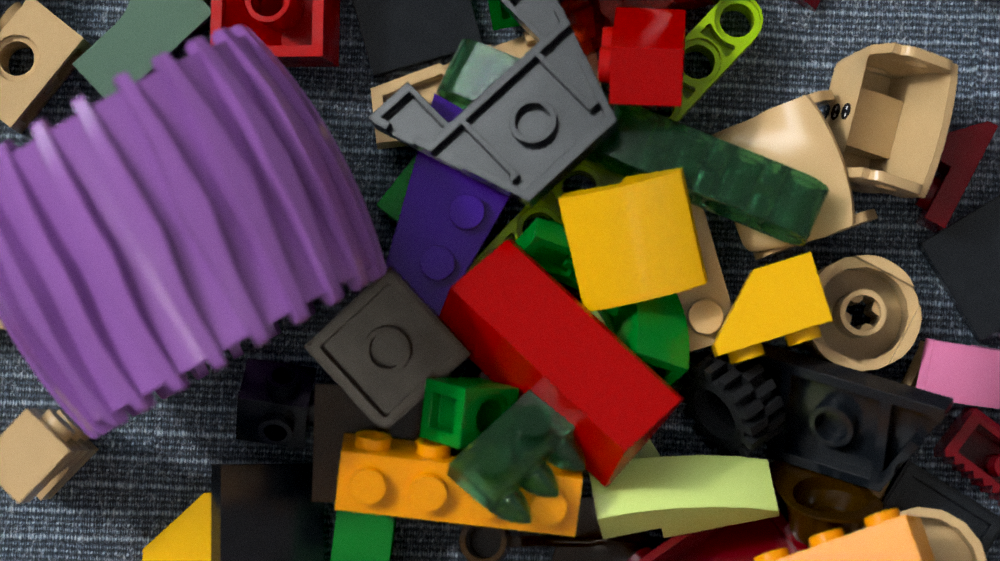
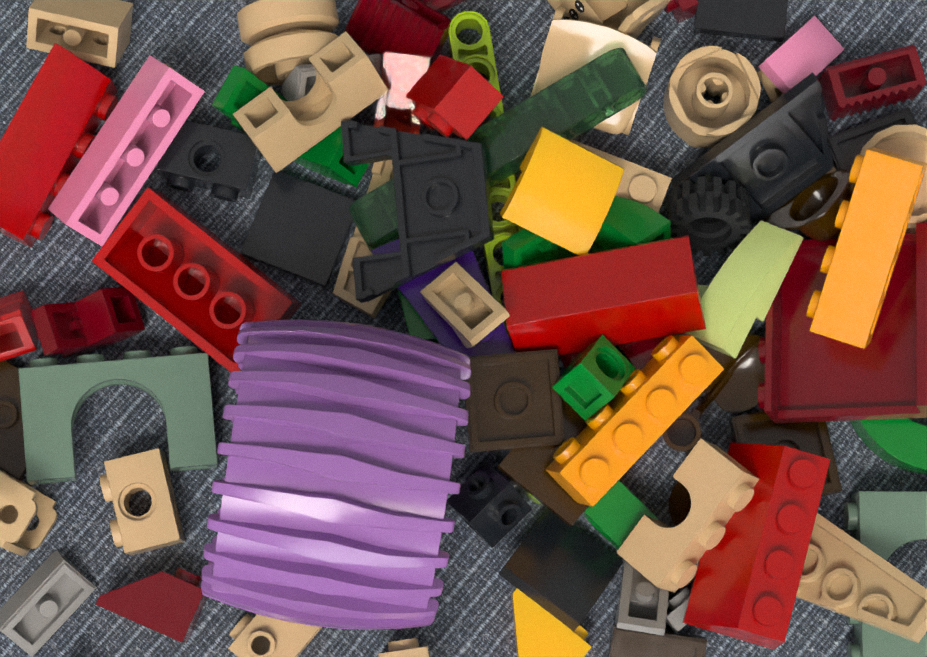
camera: 55 degrees left, 5 degrees down
(442, 228) = (464, 305): none -> tan slope
(515, 455) = (647, 366): clear green plate -> none
(773, 304) = (668, 139): yellow slope -> none

